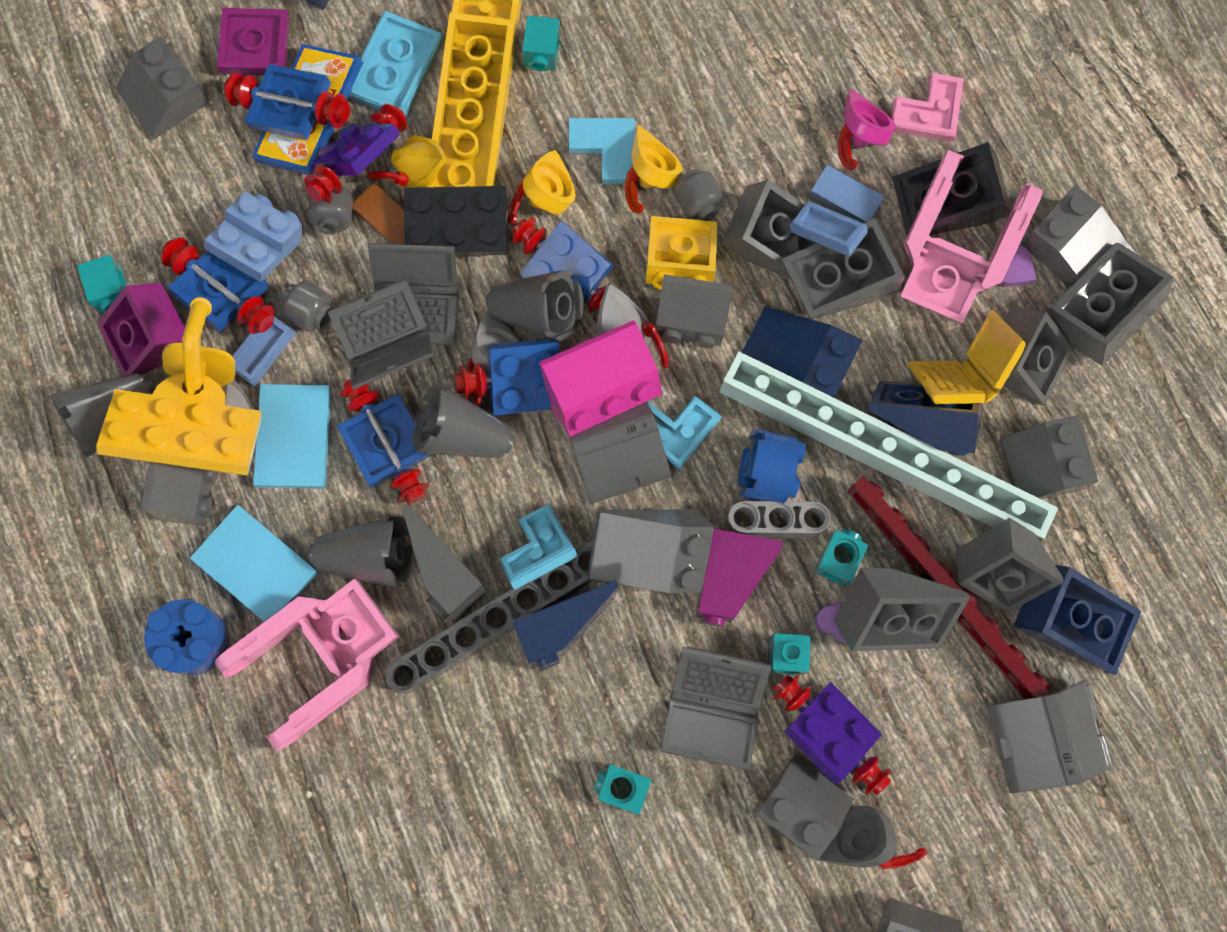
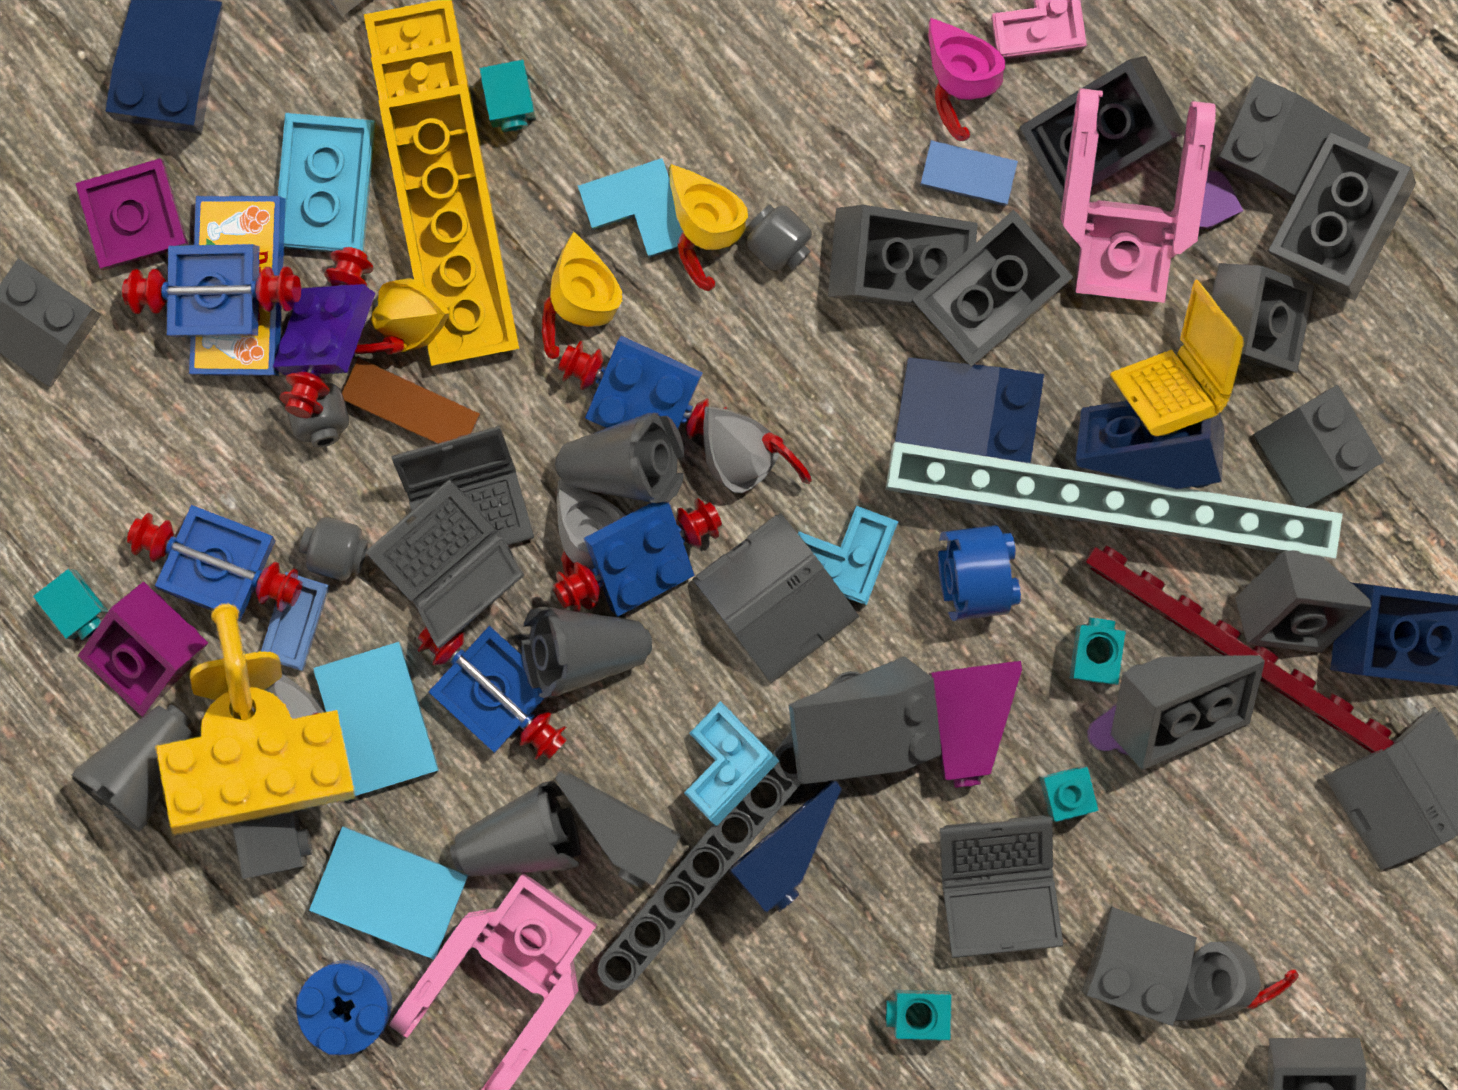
camera: 15 degrees left, 10 degrees up
(255, 236) = (236, 481): medium blue plate -> none
(460, 217) = (482, 378): black plate -> none
(600, 378) = (736, 533): dark pink slope -> none
(681, 249) = (782, 325): yellow plate -> none
(693, 311) = (821, 405): dark grey slope -> none
(792, 512) = (1028, 632): light grey beam -> none
(828, 228) = (959, 242): medium blue tile -> none
(833, 734) = (1149, 870): dark purple plate -> none

